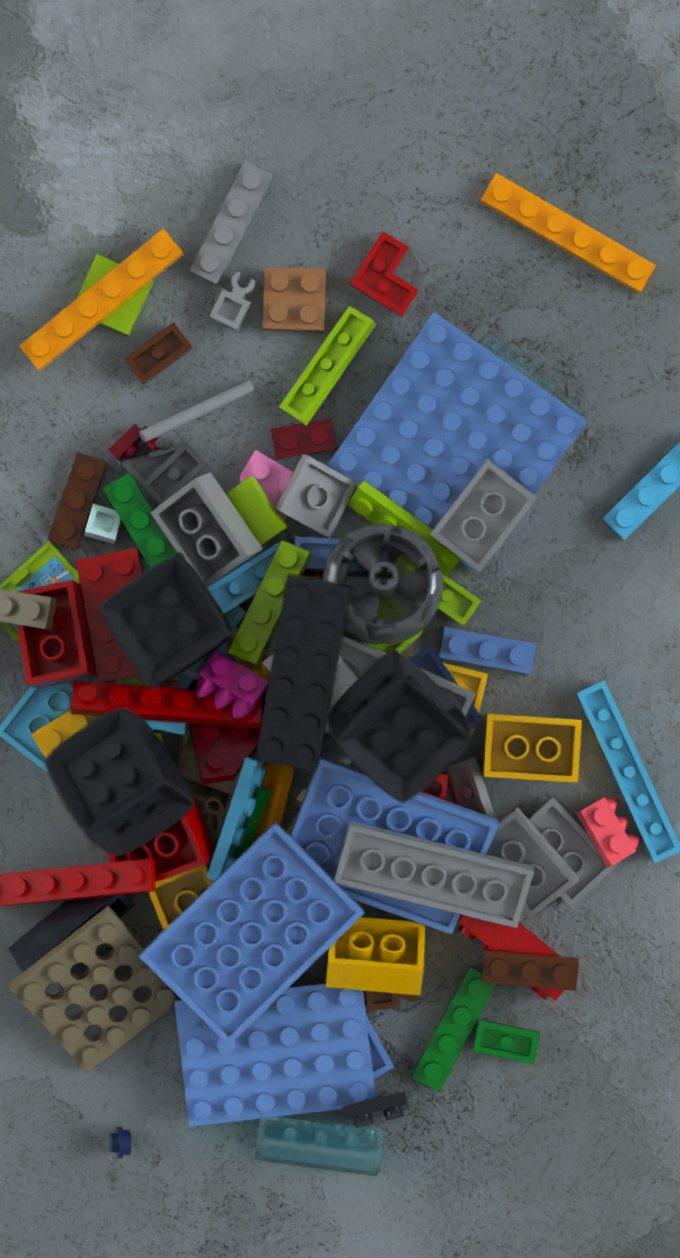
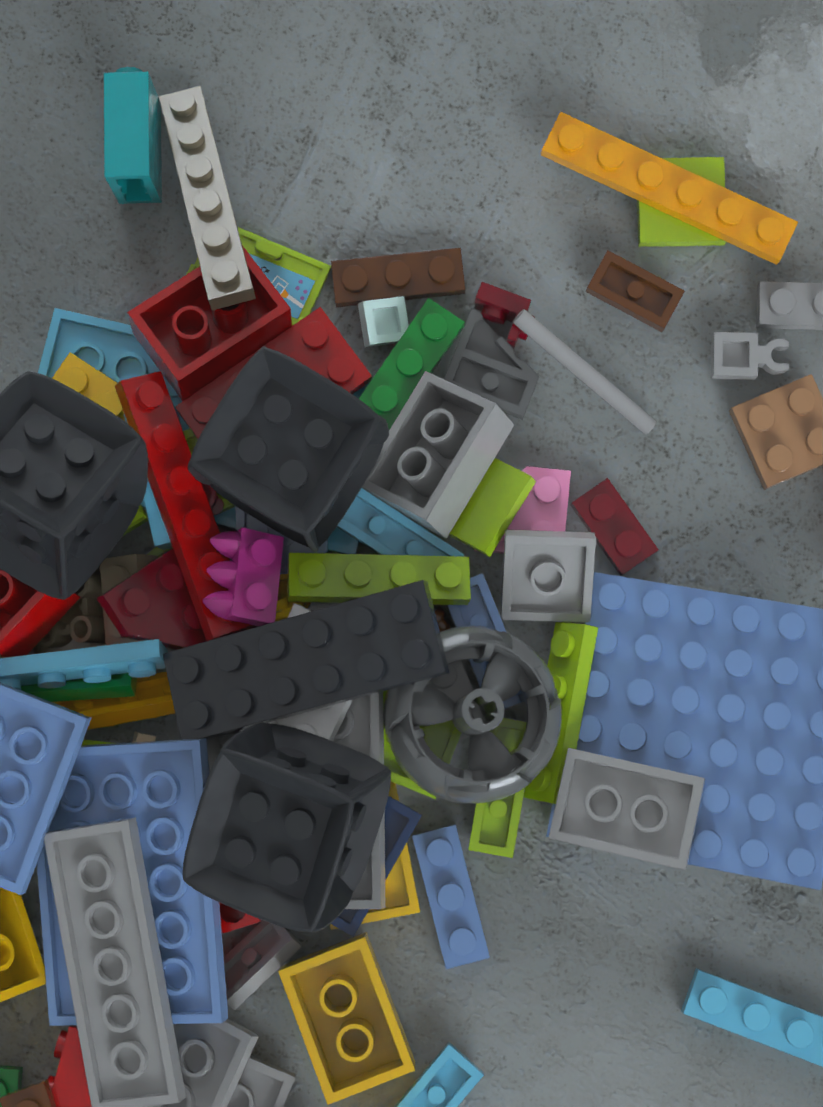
camera: 70 degrees right, 5 degrees down
(327, 365) = (724, 513): lime plate -> none

